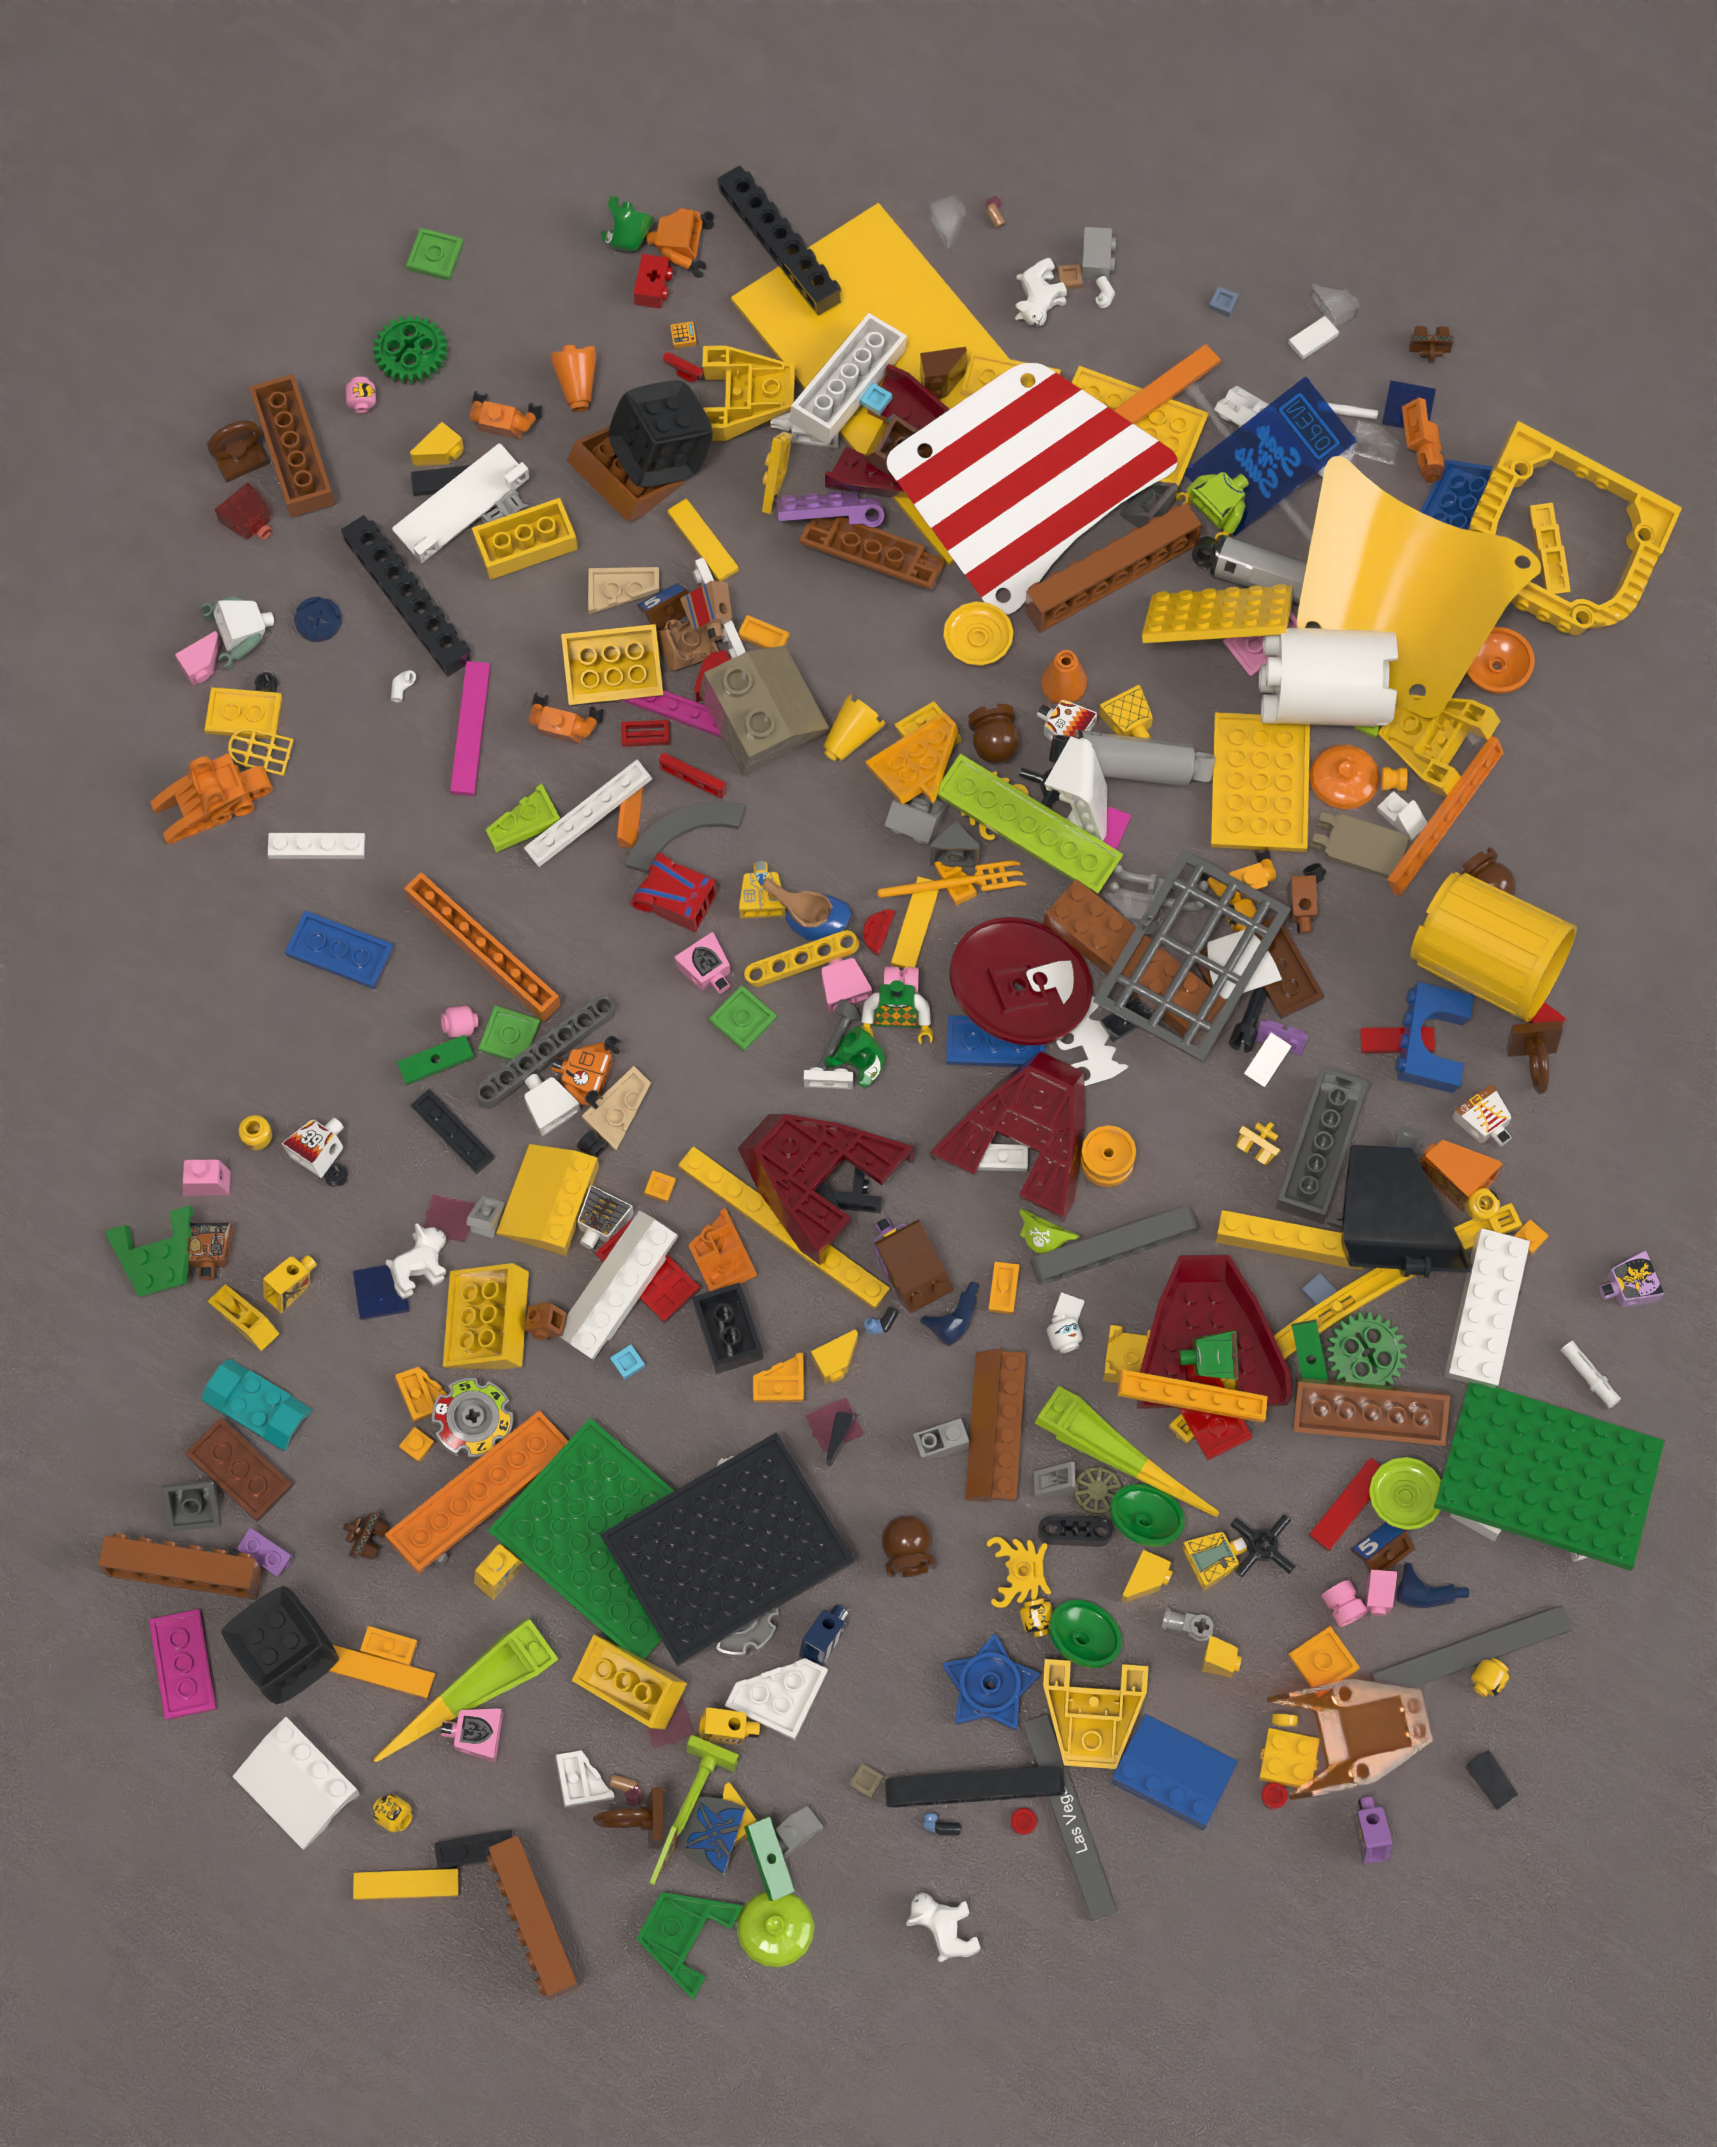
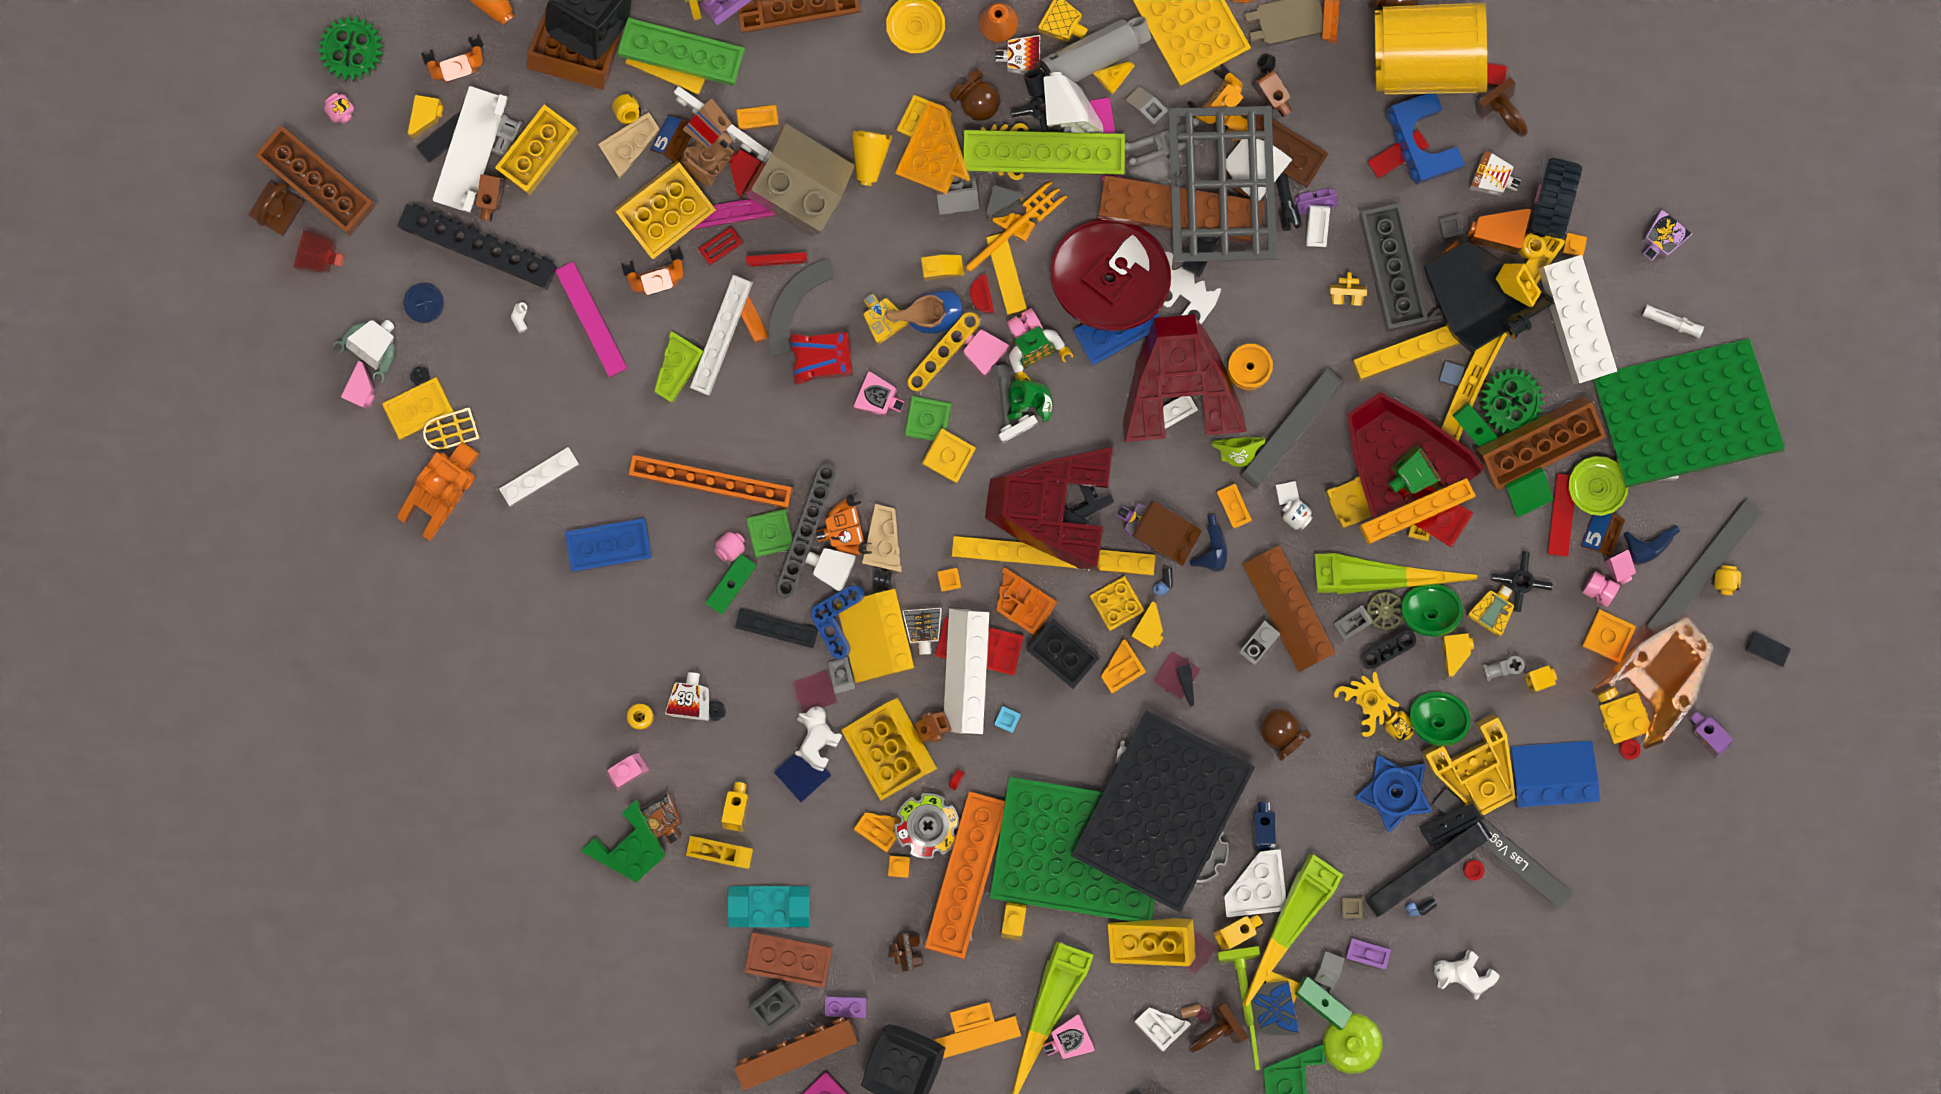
camera: 25 degrees left, 15 degrees up
(451, 552) = (490, 186): none -> dark orange torso
(512, 1151) = (829, 619): none -> blue beam
(534, 1391) = (956, 779): none -> red tile
(638, 551) = (626, 108): none -> yellow head
(728, 529) = (681, 52): none -> bright green plate
(740, 1064) = (948, 455): none -> yellow tile
(818, 1314) = (1117, 603): none -> yellow tile
(824, 1735) = (1307, 895): none -> lime plate
(852, 1839) = (1368, 953): none -> medium lavender plate
(853, 877) = (942, 266): none -> yellow slope
(1030, 1752) = (1451, 823): none -> black plate
(1147, 796) = (1113, 76): none -> yellow tile
(1163, 845) = (1147, 107): none -> light grey slope
(1327, 1456) = (1529, 492): none -> green tile
(1444, 1230) = (1518, 283): none -> yellow slope
(1537, 1168) = (1556, 198): none -> black wheel

